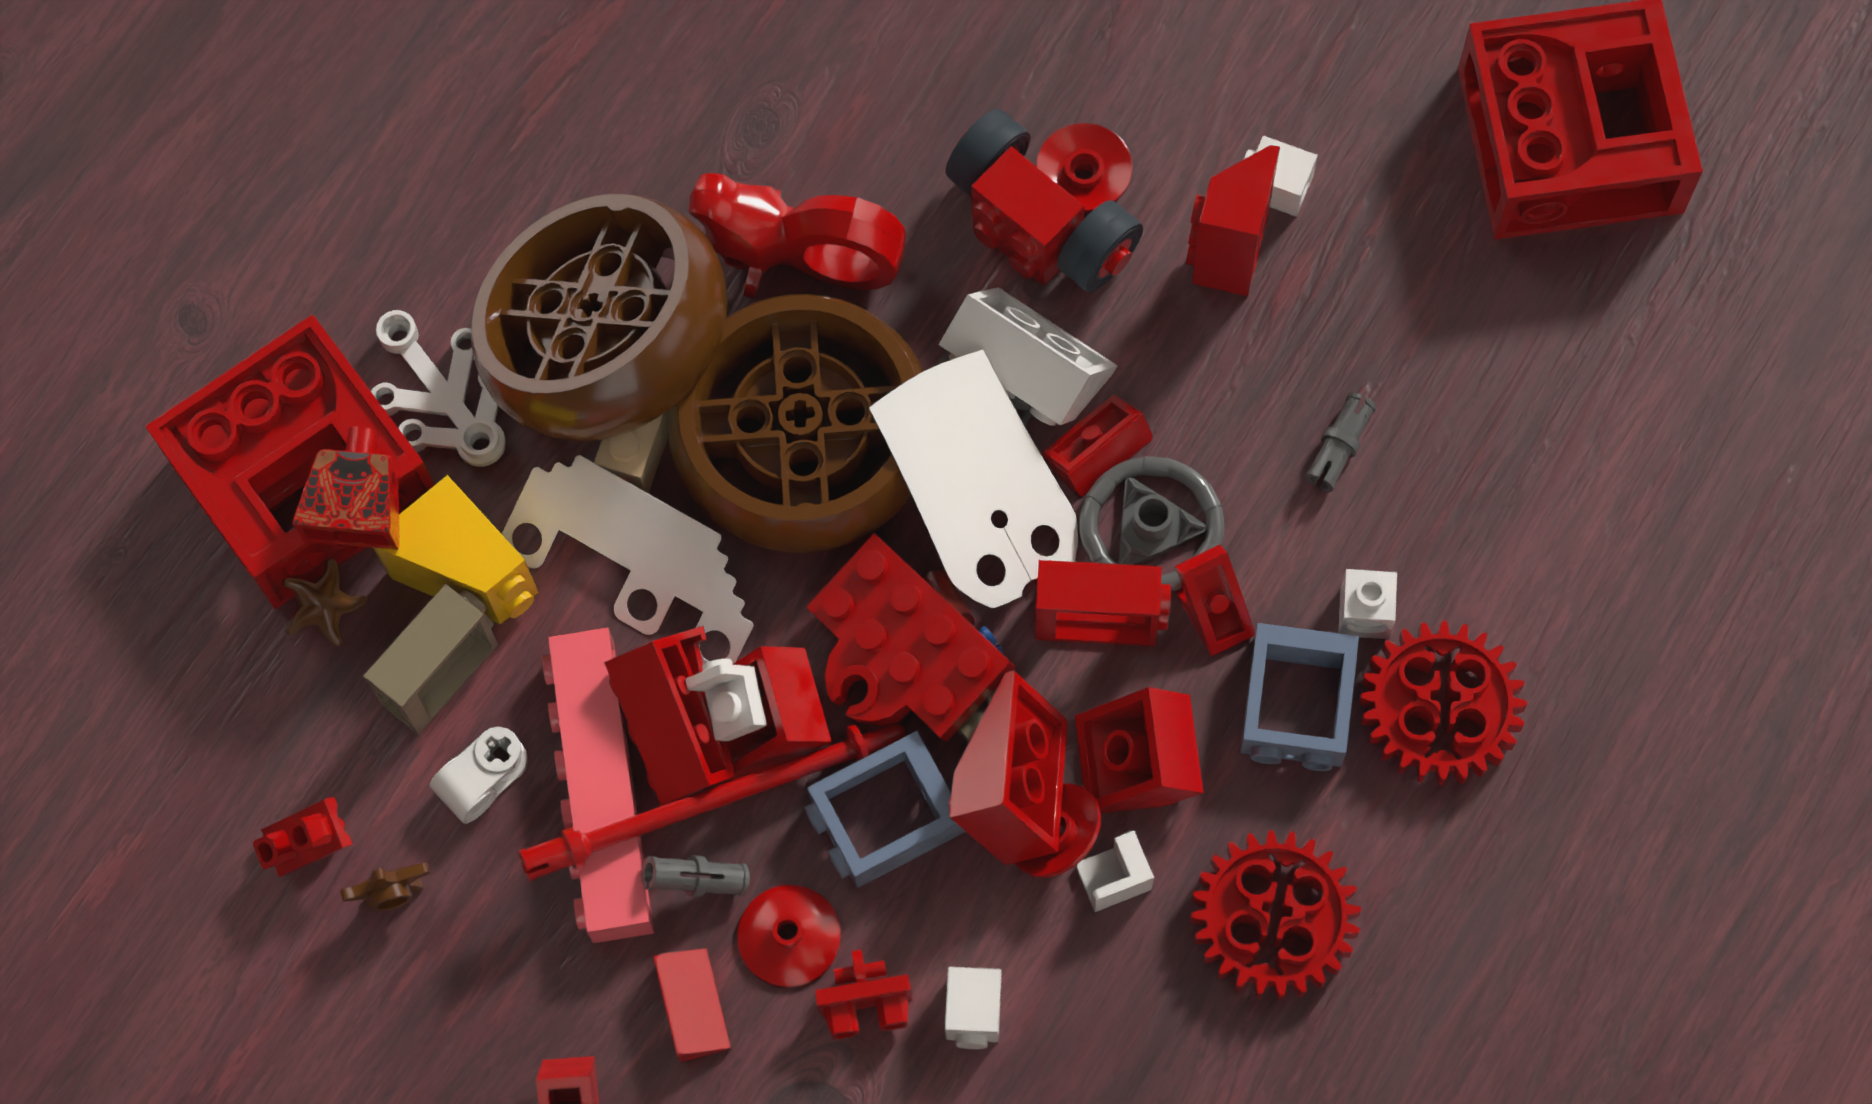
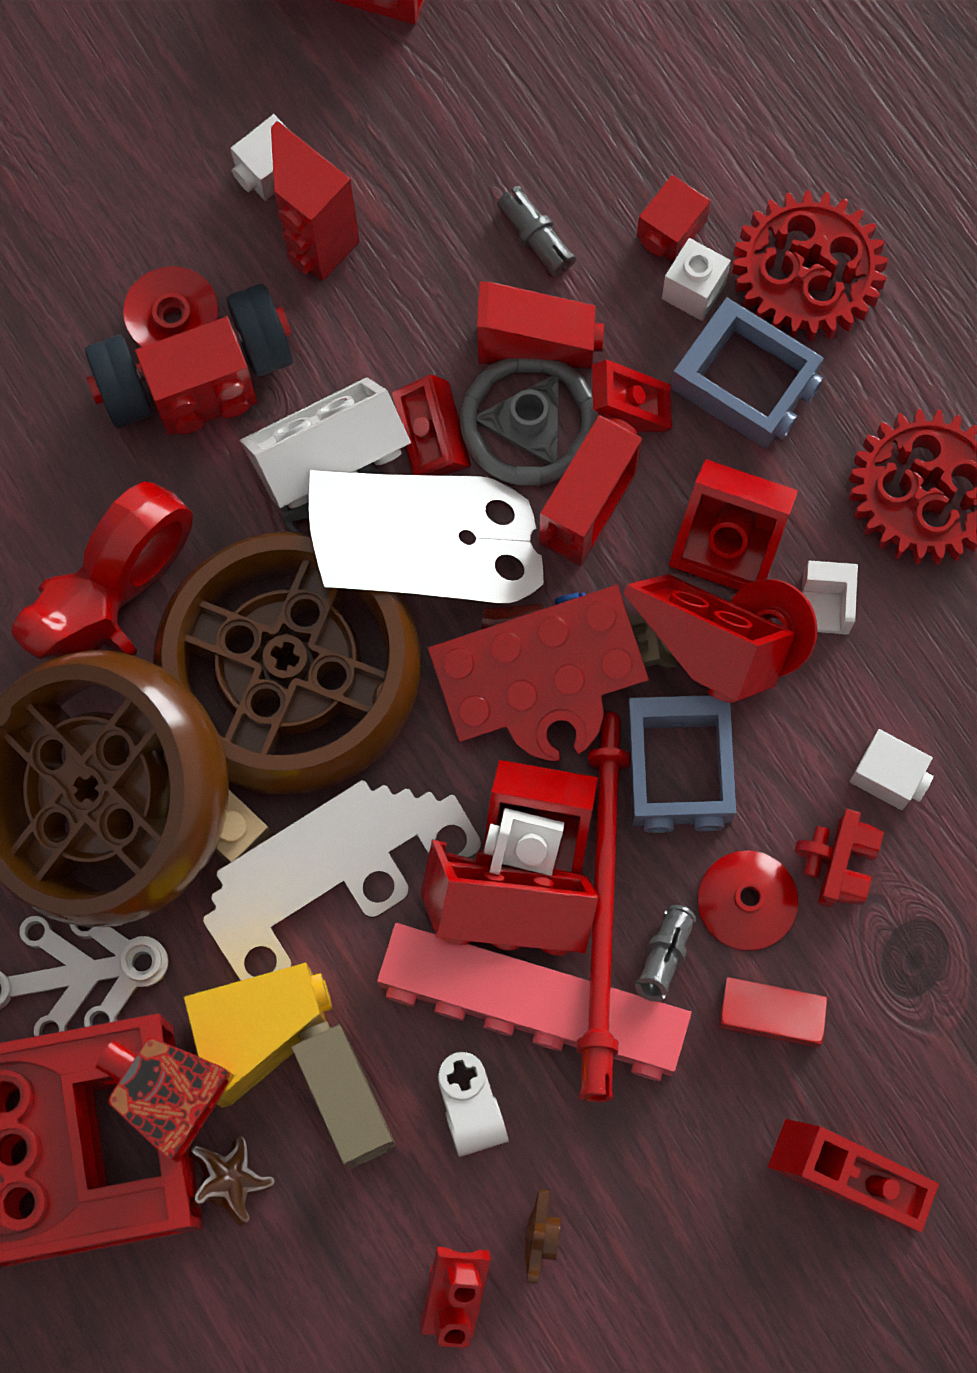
camera: 65 degrees left, 5 degrees up
(1235, 480) = (535, 326): none -> red slope
(1419, 555) = (672, 218): none -> red brick

